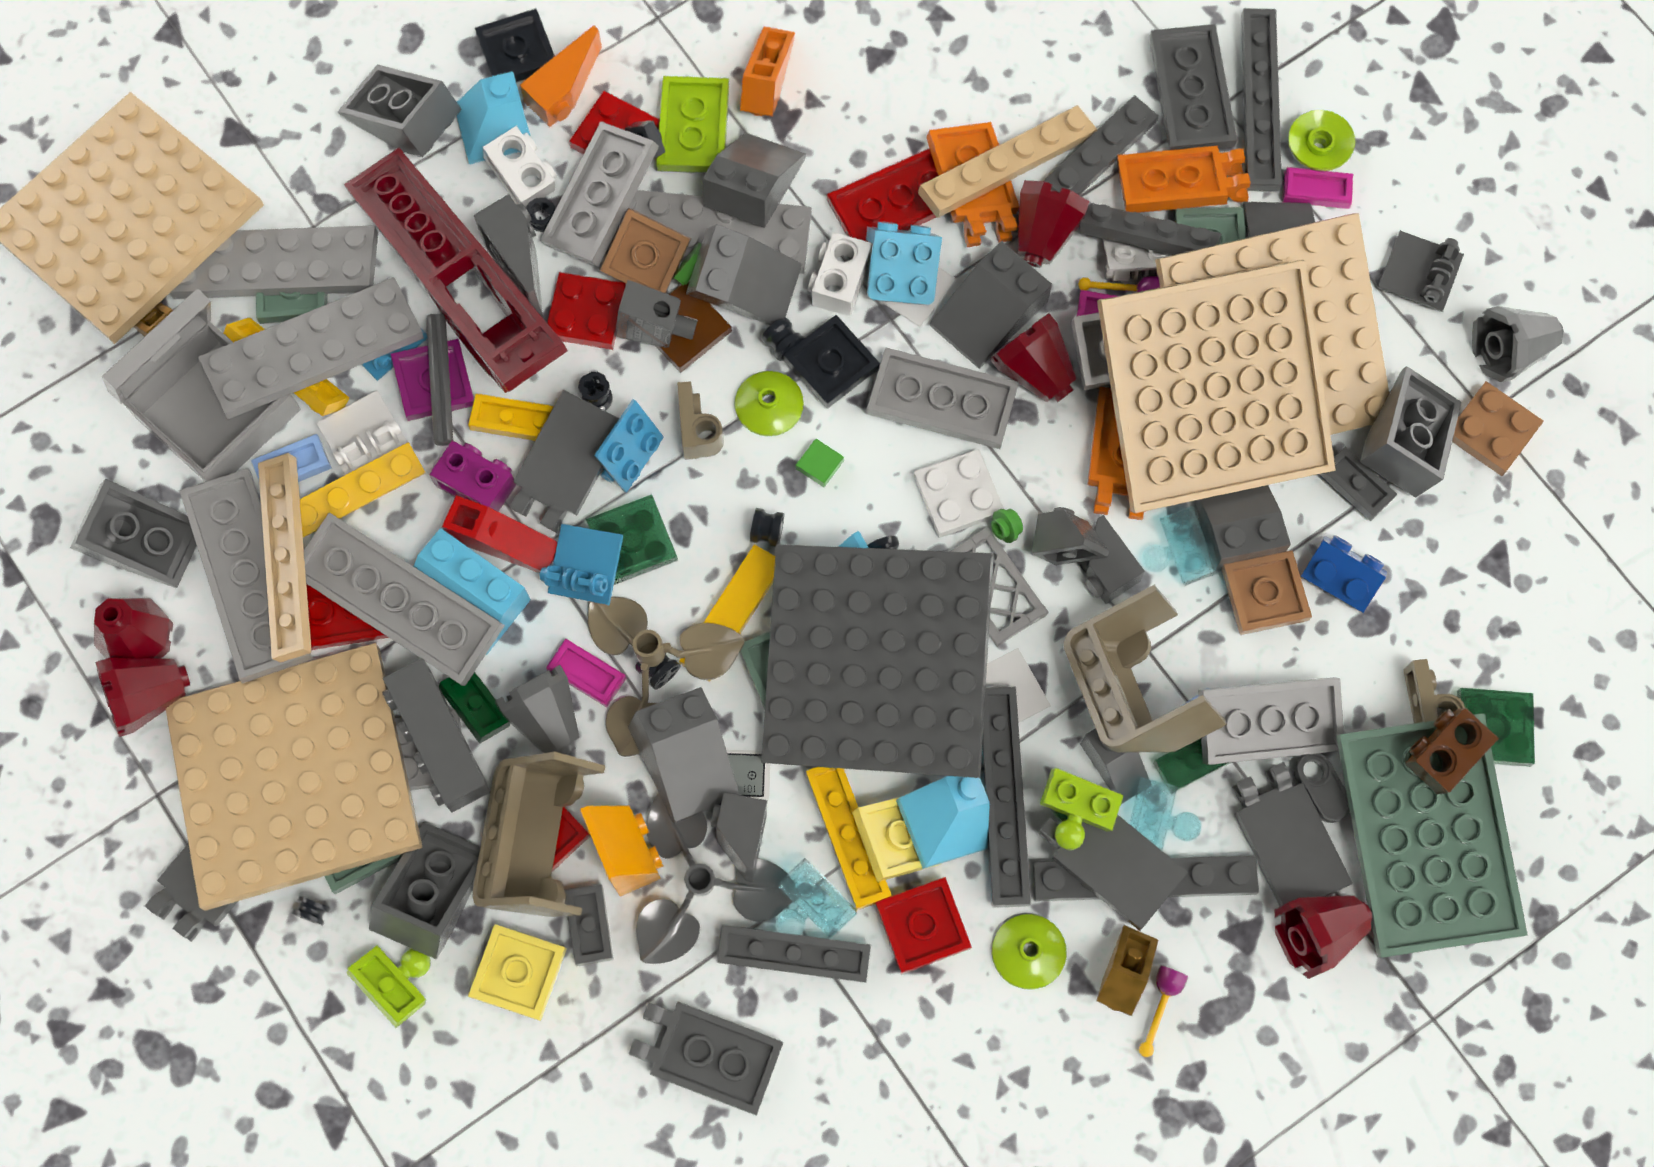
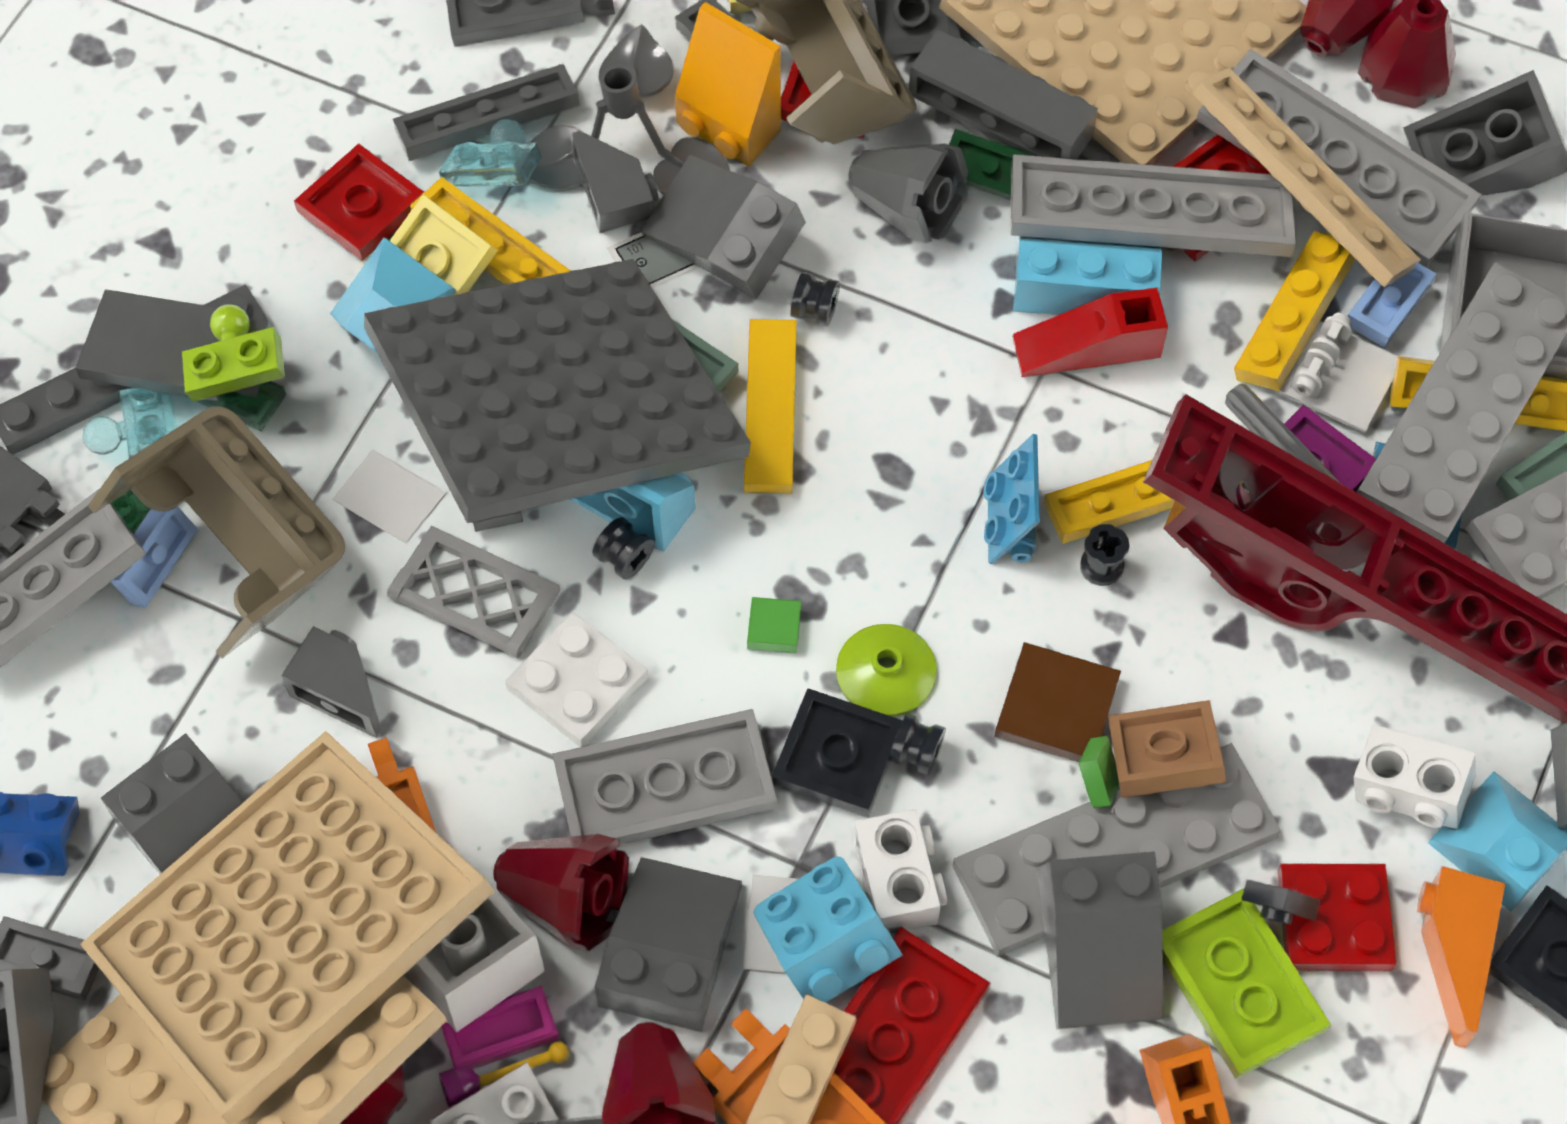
camera: 150 degrees right, 10 degrees down
(471, 476) = (1160, 376): magenta brick -> none
(510, 242) = (1323, 649): dark grey slope -> none
(540, 204) = (1330, 754): black bush -> none
(563, 461) = (1081, 453): dark grey tile -> none
(584, 564) = (972, 349): dark azure hinge -> none
(586, 310) = (1194, 656): red plate -> none
(587, 673) = (893, 264): dark pink tile -> none
(599, 193) = (1284, 795): light grey plate -> none
(645, 537) = (939, 417): clear green plate -> none
(651, 316) = (1095, 655): dark grey torso -> none
(694, 423) = (962, 579): dark tan plate -> none
(706, 646) = (771, 343): dark tan plant -> none
(743, 275) = (1016, 771): dark grey slope -> none
(767, 527) = (788, 508): black wheel -> none
(1005, 793) = (337, 369): dark grey plate -> none
(1006, 525) = (492, 661): bright green plate -> none
(1024, 970) = (235, 256): lime dish -> none
(1066, 538) = (399, 666): dark grey slope -> none
(1127, 971) = (104, 257): pearl gold slope -> none
(1169, 984) = (53, 279): hinge -> none
(1186, 547) = (241, 751): clear light blue plate -> none
(1266, 592) = (107, 744): medium nougat plate -> none

